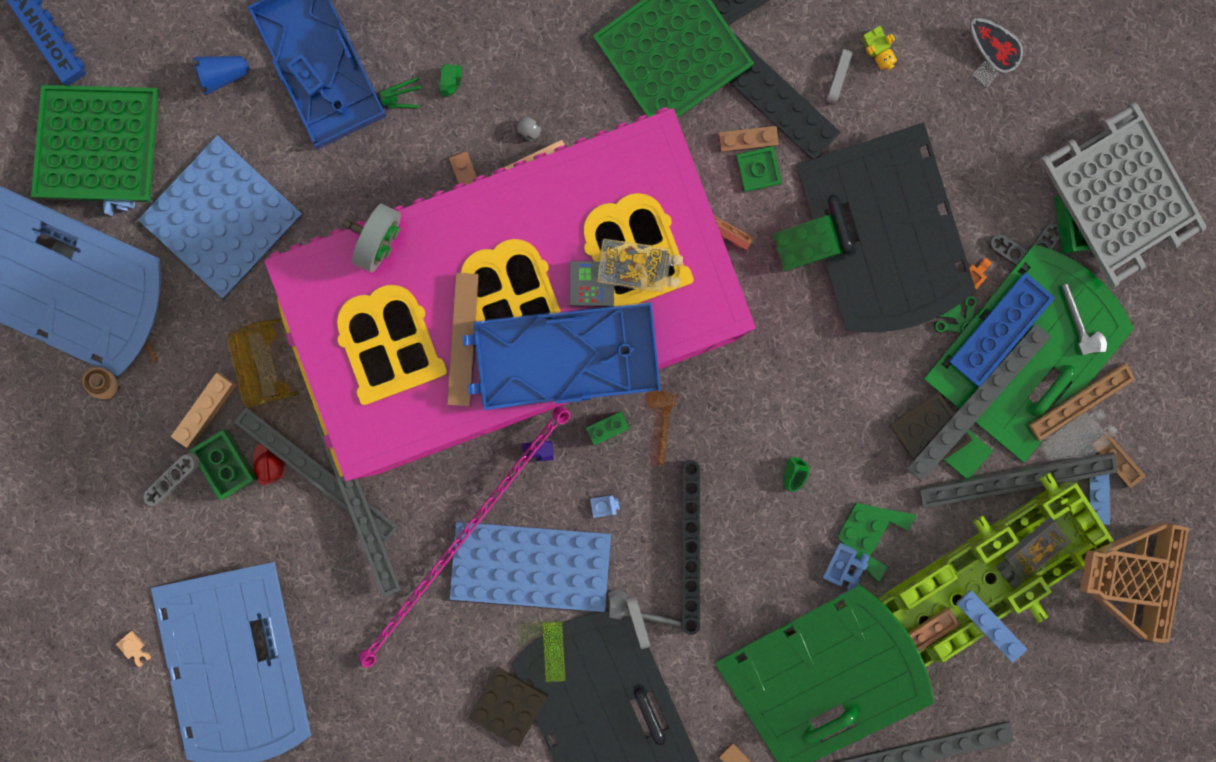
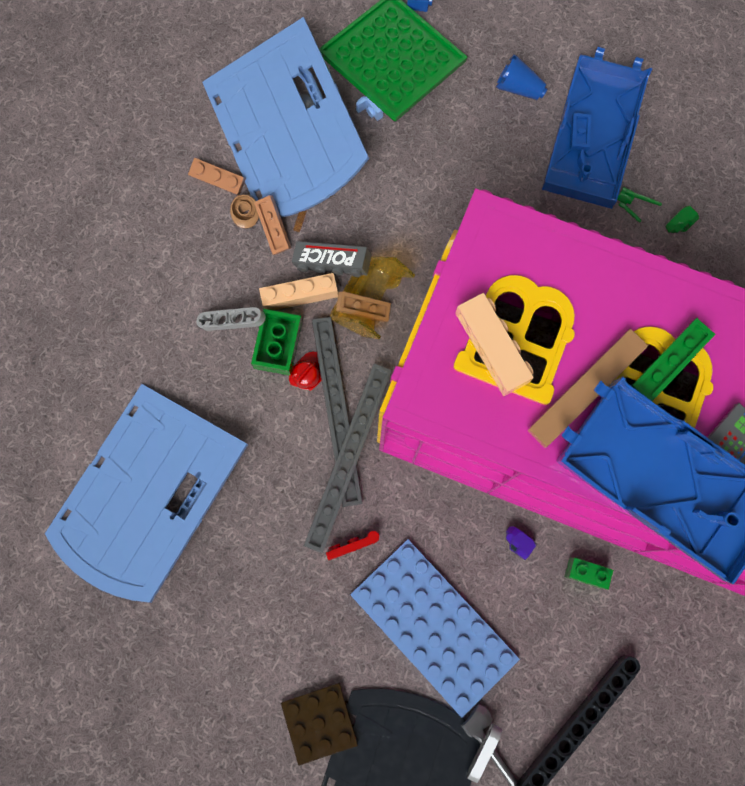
camera: 40 degrees right, 10 degrees down
(50, 374) = (216, 176): none -> nougat plate
(131, 646) = (87, 412): light nougat plate -> none
(132, 375) = (272, 225): none -> nougat plate
(204, 361) = (331, 258): none -> dark grey brick
(220, 217) = (429, 173): medium blue plate -> none
(264, 378) = (363, 306): none -> medium nougat plate
(367, 657) = (563, 530): dark pink piece -> none
(373, 367) = (494, 344): none -> light nougat brick
(375, 237) = (592, 239): light grey wheel -> none
(419, 562) = (353, 545): none -> red plate
(503, 270) = (673, 359): none -> green plate
(554, 651) = (395, 713): clear neon green plate -> none
(604, 506) = (533, 632): light blue bracket -> none
(667, 402) = (651, 594): clear orange piece -> none
(795, 474) = (710, 748): green rock -> none

